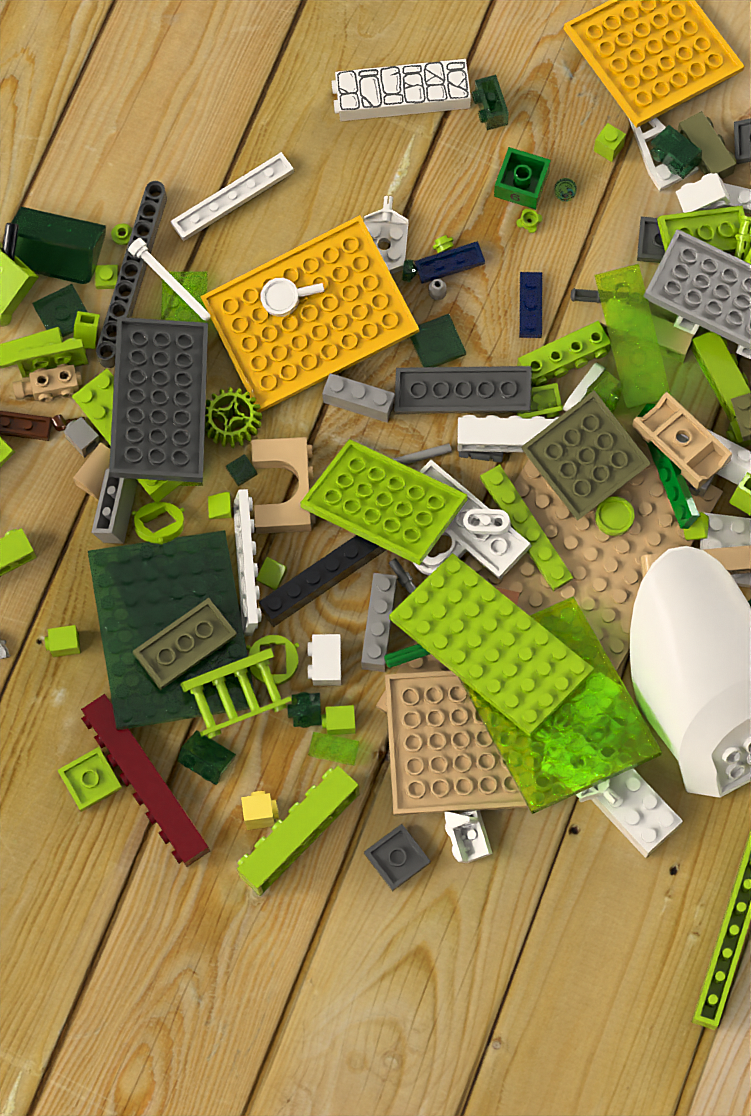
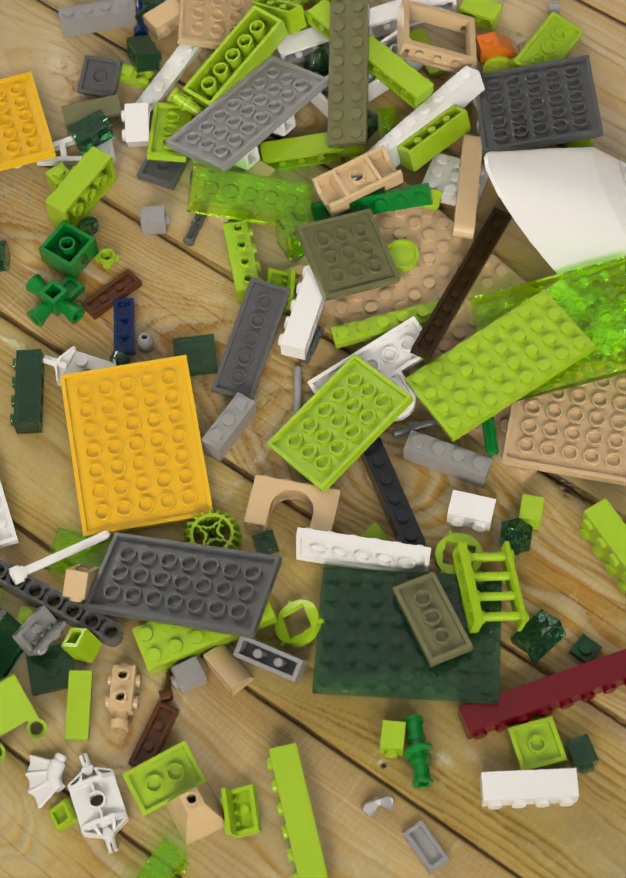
camera: 75 degrees left, 10 degrees down
(43, 780) = (529, 787): none -> white brick
(51, 355) = (99, 681): lime plate -> none
(54, 666) = (418, 752): none -> green piece
(88, 823) = (581, 754): none -> clear green brick
(89, 287) = (38, 632): none -> light grey bracket
(145, 305) = (79, 581): none -> tan brick
(203, 807) = (585, 649): none -> dark green plate
(220, 506) = (295, 568): lime slope -> none
(259, 810) = (605, 595): light yellow brick -> none
(282, 297) = (113, 461): white piece -> none
(333, 748) = (554, 526): clear neon green plate -> none
(347, 195) = (28, 391): none -> clear green brick
(443, 244) = (105, 327): lime plate -> none
(460, 185) = (55, 299): none -> green brick
(487, 520) = (384, 344): white plate -> none
(488, 238) = (116, 289): none -> reddish brown tile
(530, 305) = (185, 276): clear blue plate -> none
(557, 577) = (461, 284): none -> dark brown plate
(580, 391) = (279, 250): white beam -> none
(588, 251) = (154, 220): none -> light grey brick
(598, 166) = (81, 188): none -> lime brick

